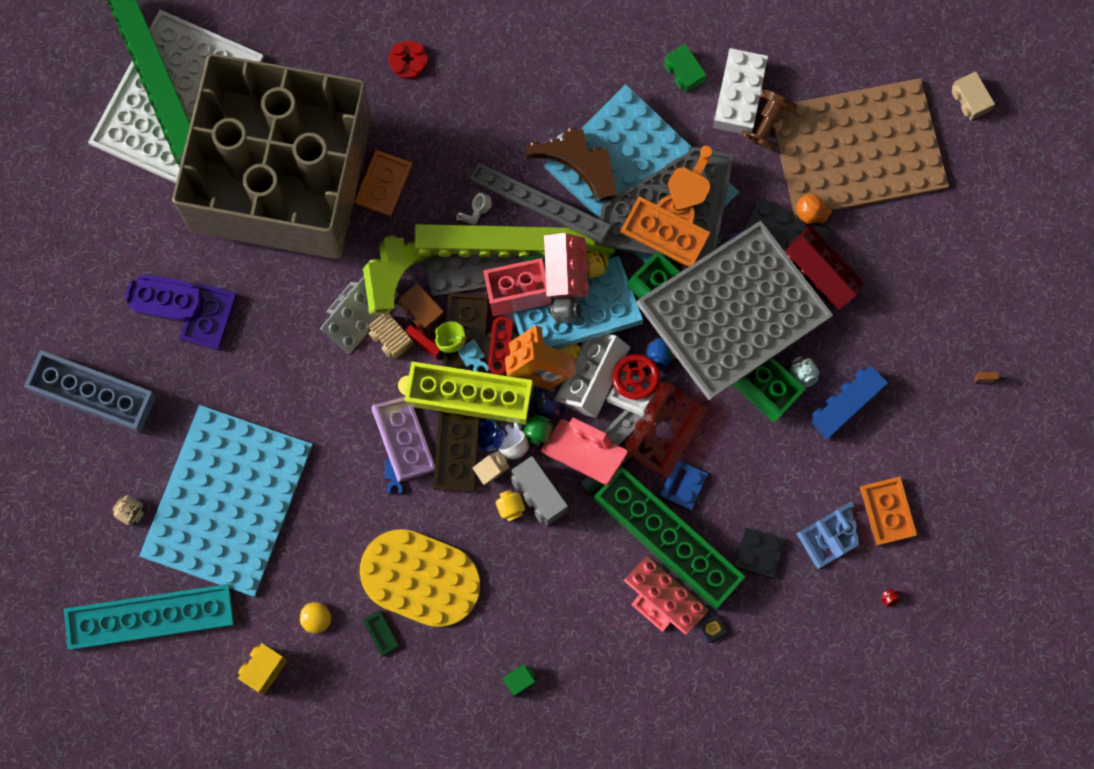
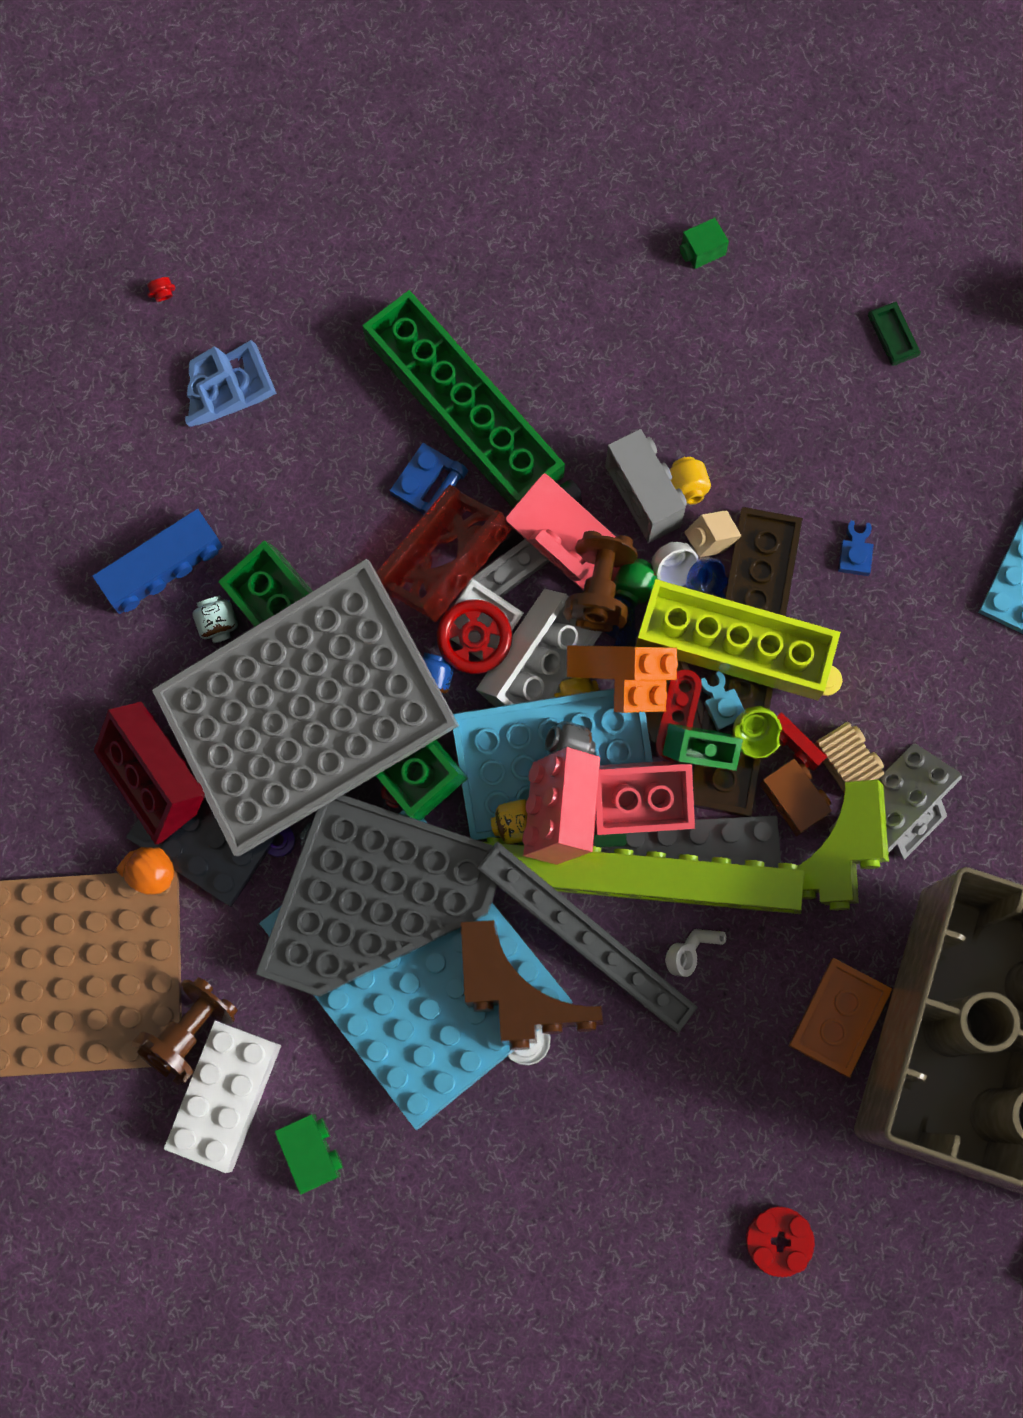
camera: 170 degrees left, 0 degrees up
(315, 617) = (988, 365): yellow hair -> none
(403, 439) = (841, 594): lavender tile -> none
(419, 578) = (832, 401): yellow plate -> none
(483, 319) = (702, 747): none -> green brick
(560, 408) = (596, 606): none -> reddish brown piece
(663, 598) = (482, 325): coral bracket -> none
(669, 227) = (380, 848): orange plate -> none
(712, 628) = (421, 281): black tile -> none
(759, 553) = (334, 373): black plate -> none
(888, 511) = (136, 405): orange plate -> none

